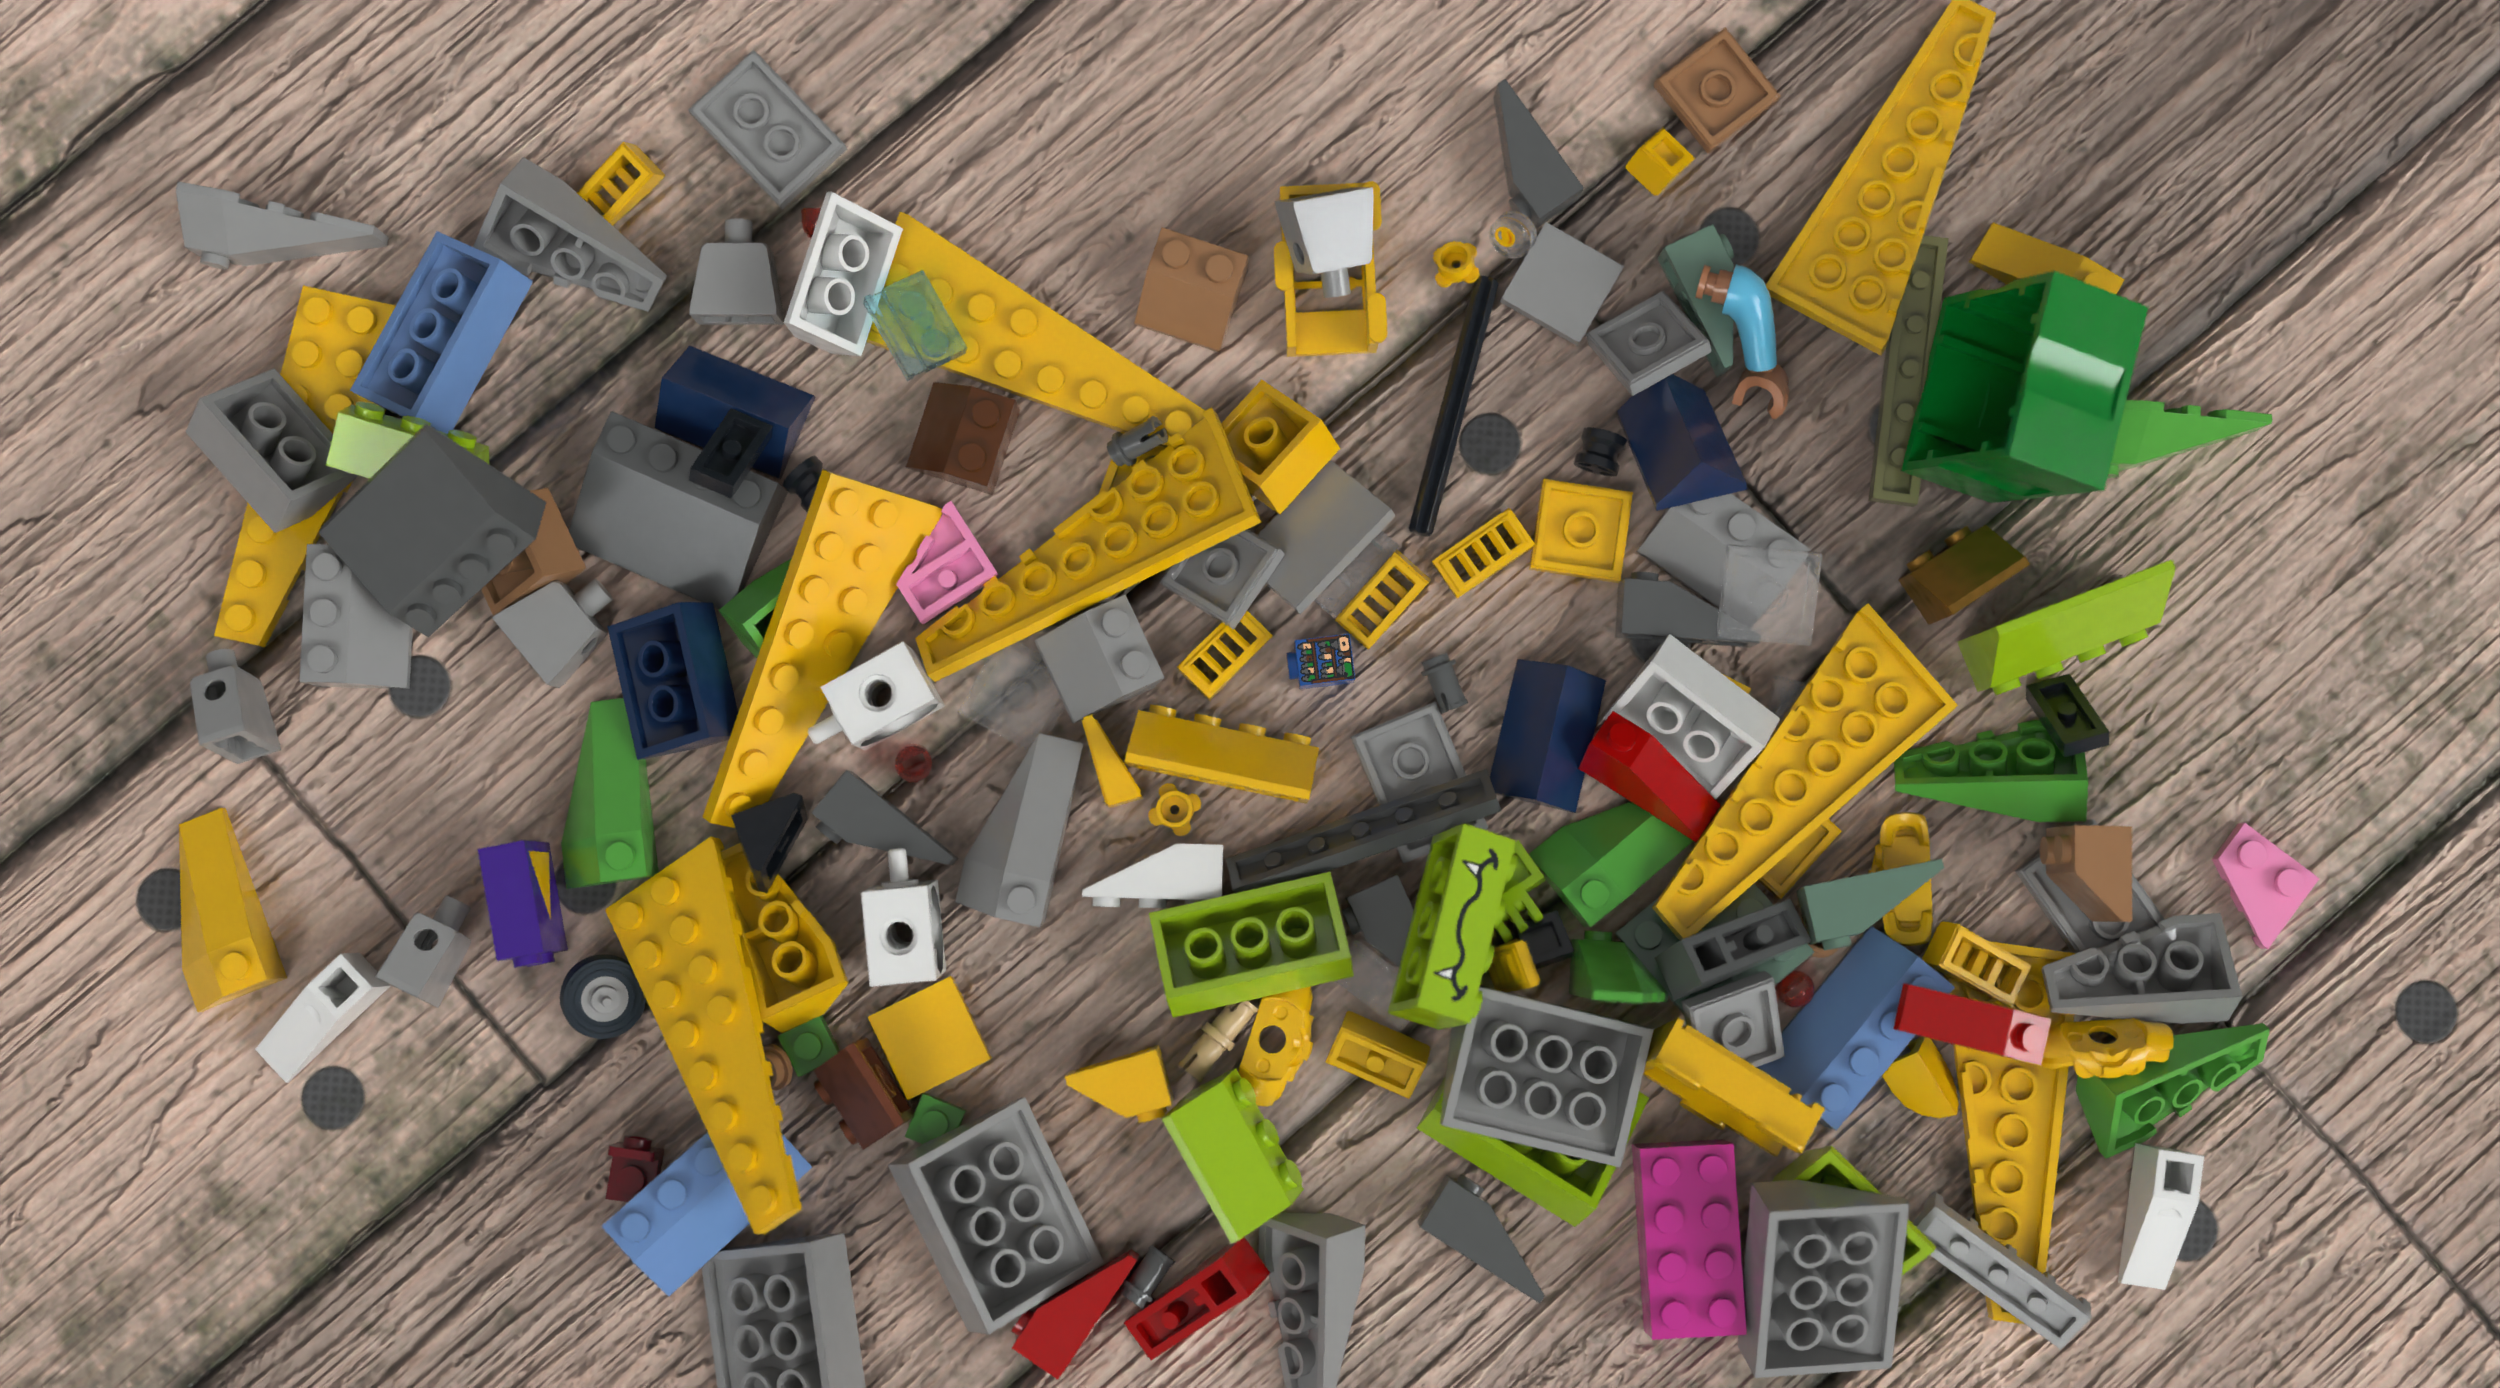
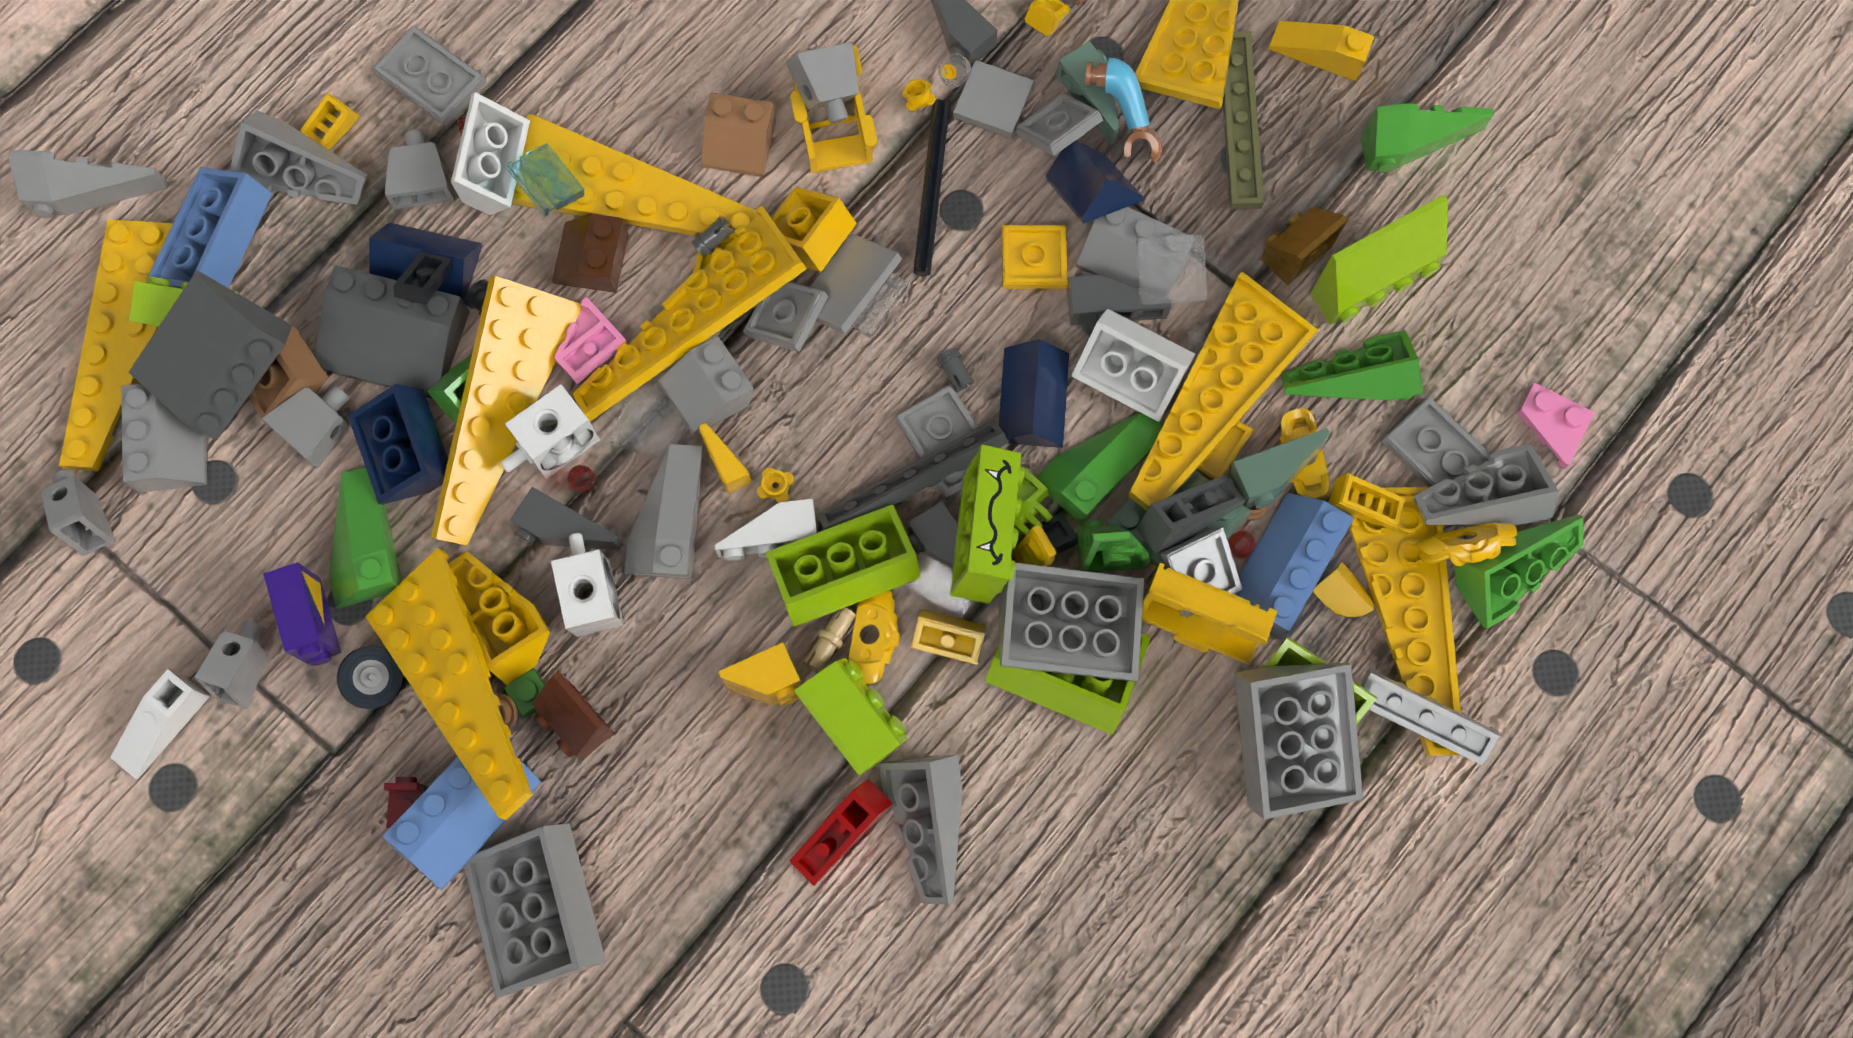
camera: 10 degrees left, 10 degrees down
(222, 921) = (80, 672): yellow wedge -> none
(269, 448) = (89, 325): light grey slope -> none
(769, 834) = (481, 541): black slope -> none
(929, 1037) = (617, 673): yellow tile -> none
(933, 1119) = (629, 735): bright green plate -> none
(996, 1216) = (681, 791): light grey slope -> none
(1066, 1318) = (745, 862): red slope -> none
(1147, 1277) = (801, 822): dark grey pin -> none
(1199, 680) = (789, 397): yellow slope -> none
(1221, 755) = (803, 440): yellow slope -> none
(1321, 662) = (866, 367): brick -> none
(1355, 627) = (906, 294): yellow slope -> none
(1471, 1227) = (1039, 749): dark grey slope -> none
(1516, 532) = (988, 260): yellow slope -> none
(1600, 451) = (1038, 200): black wheel -> none
(1648, 776) = (1106, 406): red slope -> none
(1689, 1239) = (1197, 730): dark pink brick -> none
(1972, 1024) = (1372, 538): red slope -> none
(2025, 389) = (1321, 105): green tile -> none
(2067, 715) = (1395, 325): plate -> none
(2092, 868) = (1433, 420): medium nougat slope -> none
(2158, 1213) = (1533, 659): white slope -> none

